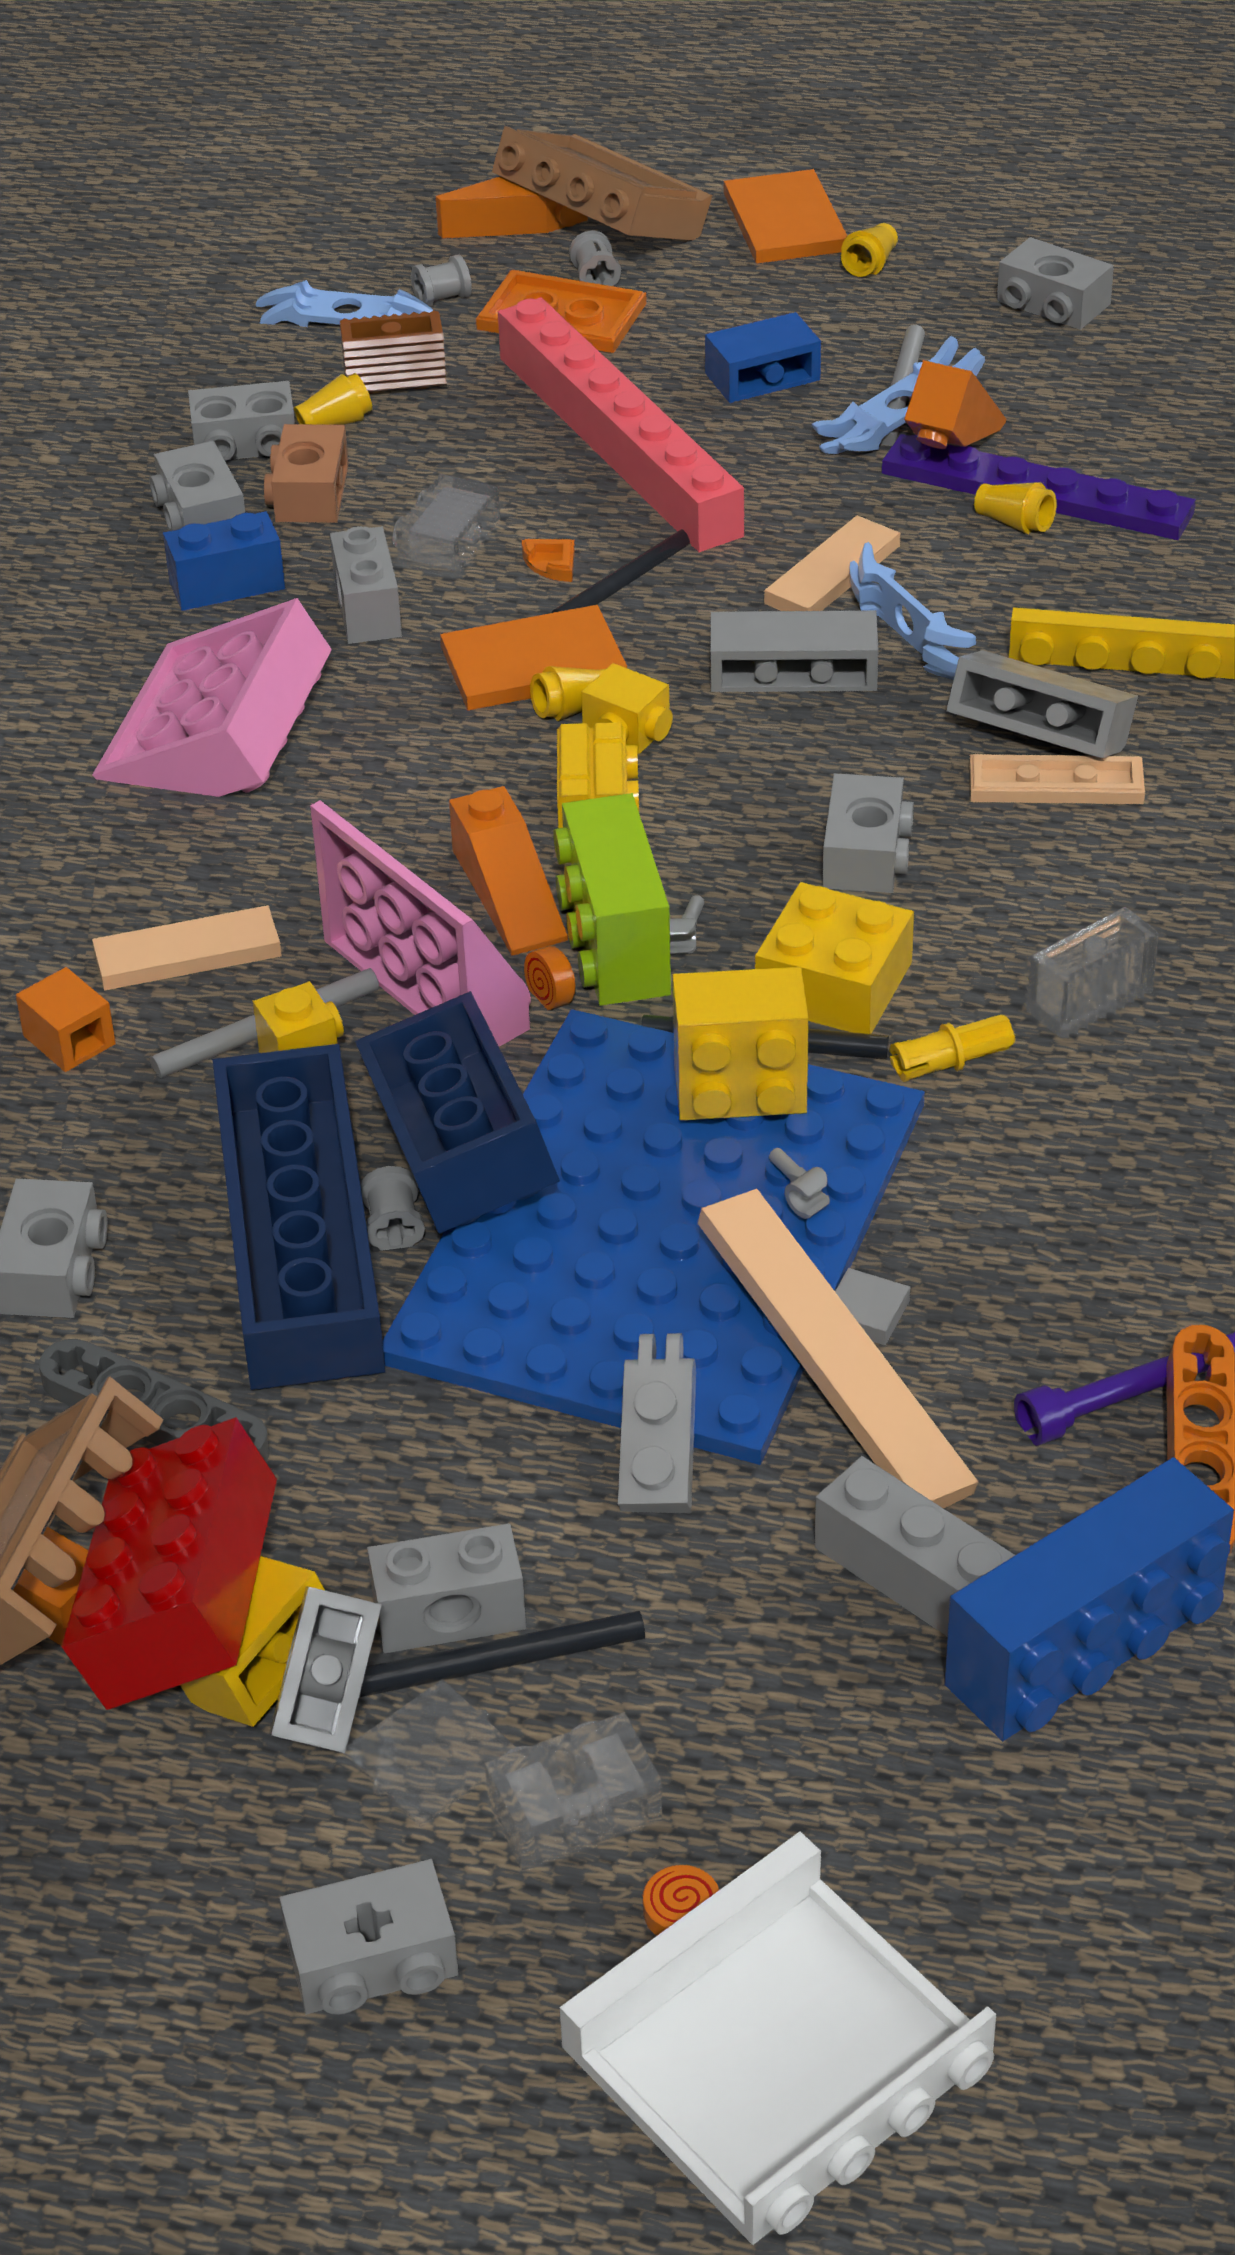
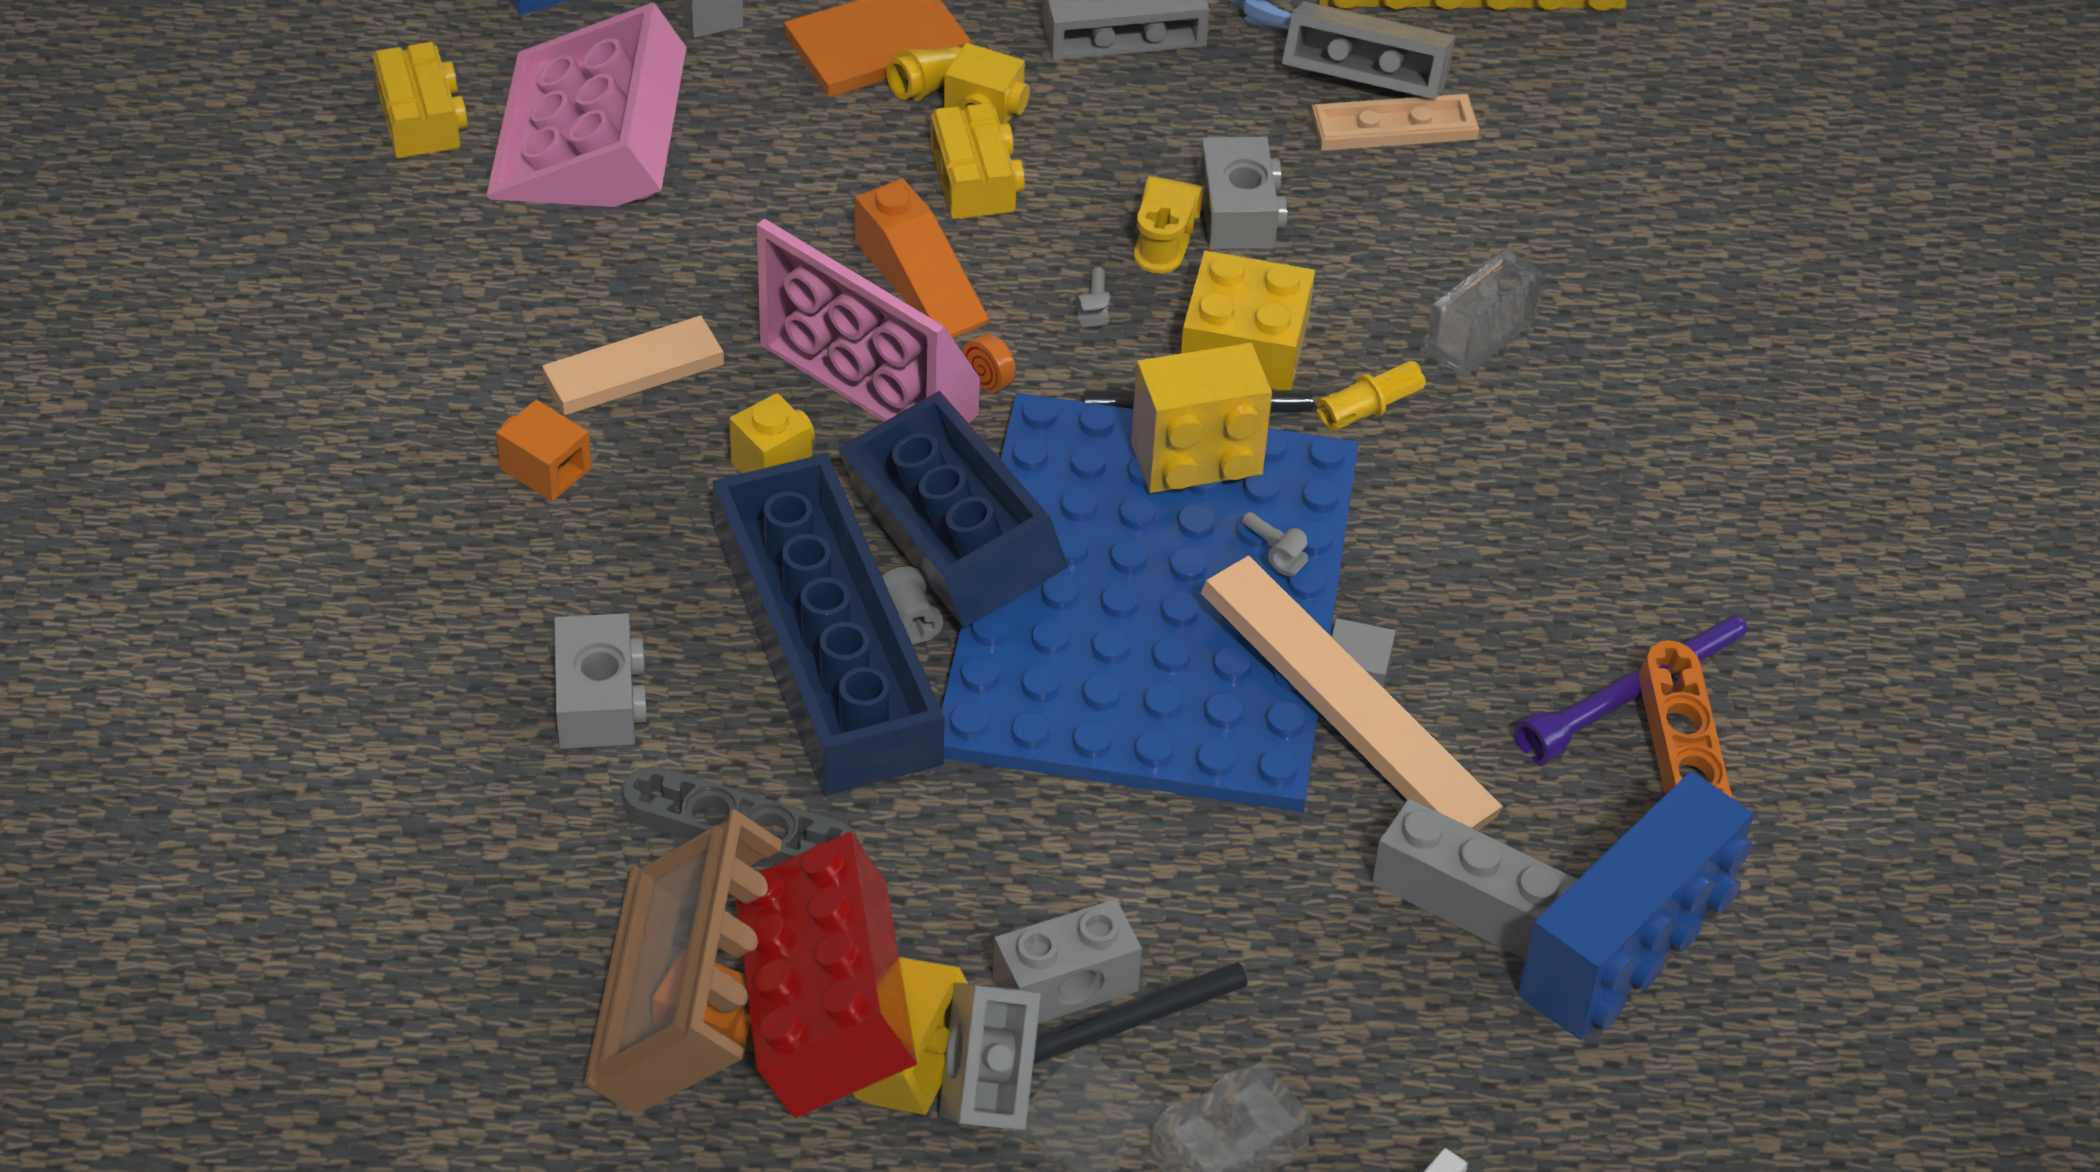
camera: 15 degrees left, 5 degrees up
(50, 678) = (418, 99): none -> yellow brick
(245, 1031) = (717, 440): light grey bar -> none
(614, 900) = (1036, 282): lime brick -> none
(657, 1429) = (1212, 792): light grey hinge -> none
(779, 856) = (1166, 223): none -> yellow piece

